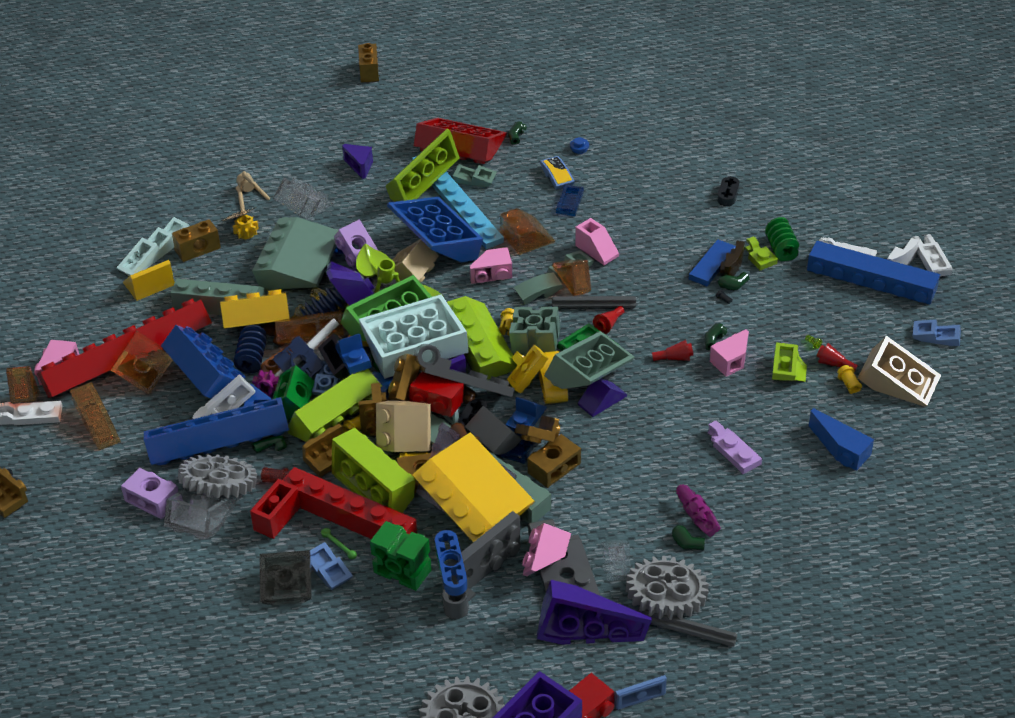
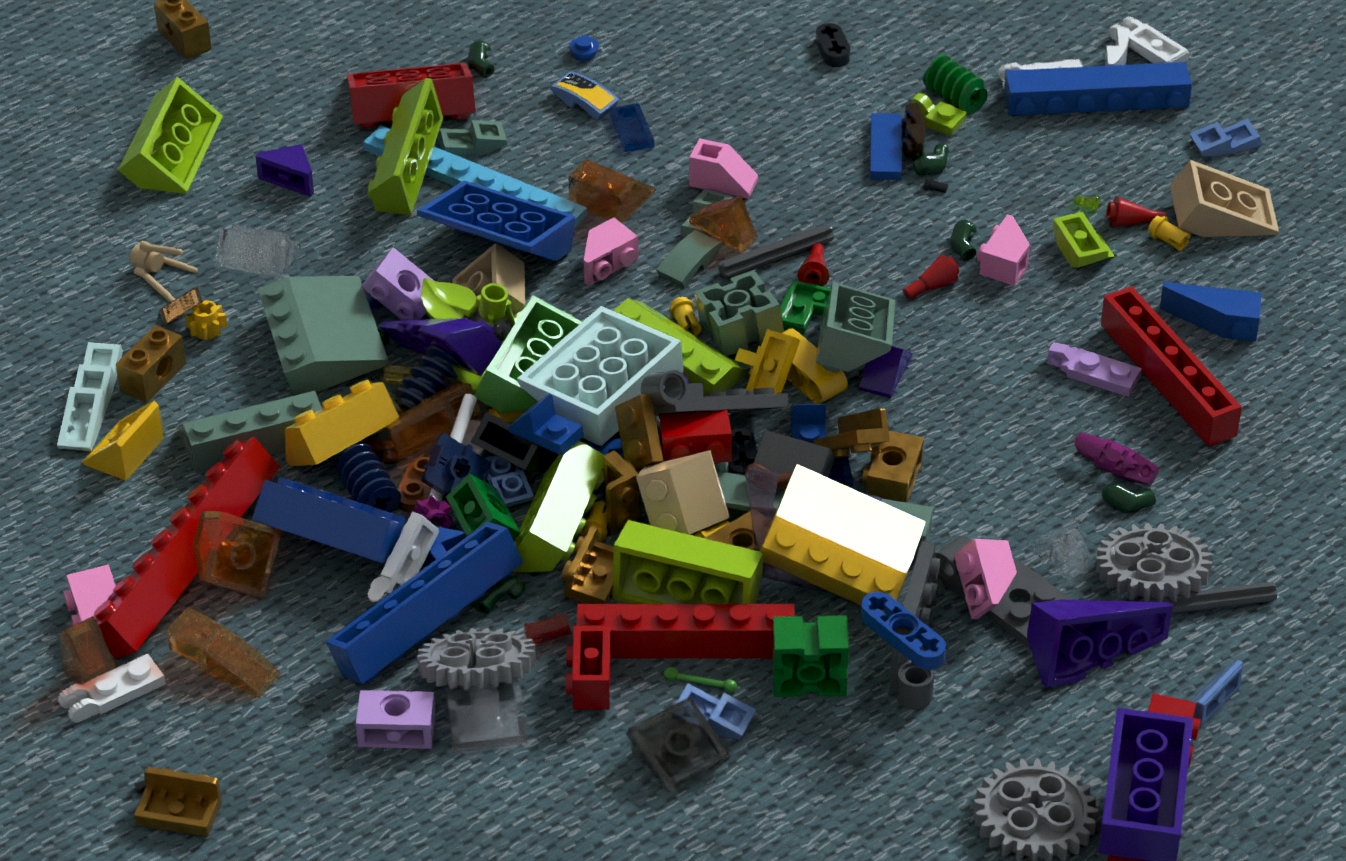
camera: 30 degrees left, 0 degrees up
(311, 123) = (171, 140): none -> lime slope
(777, 465) = (1171, 366): none -> red brick

